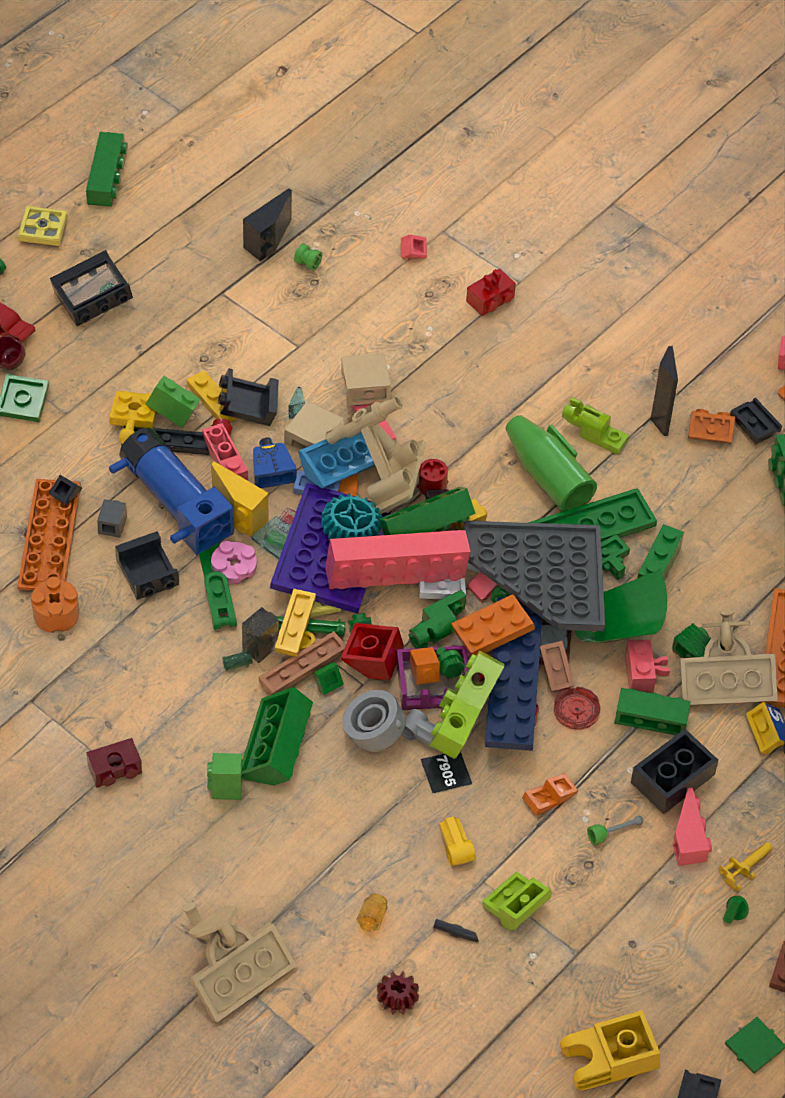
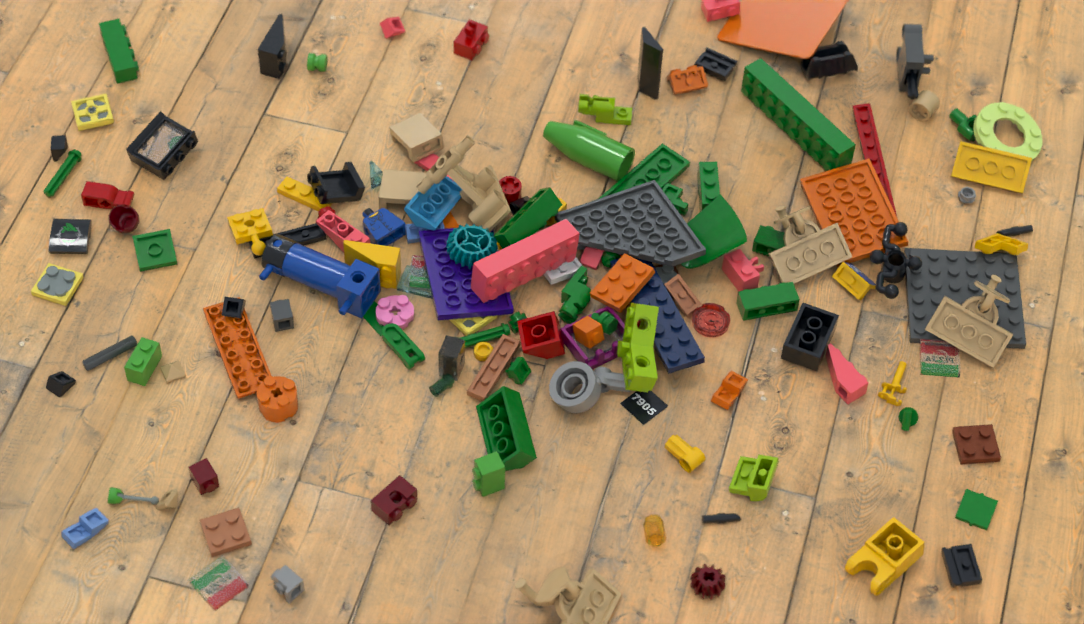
camera: 25 degrees left, 0 degrees up
(146, 566) = (329, 341): black panel -> none
(173, 401) = (280, 208): bright green brick -> none
(295, 622) = (473, 338): yellow plate -> none
(598, 832) = (781, 404): bright green hinge -> none

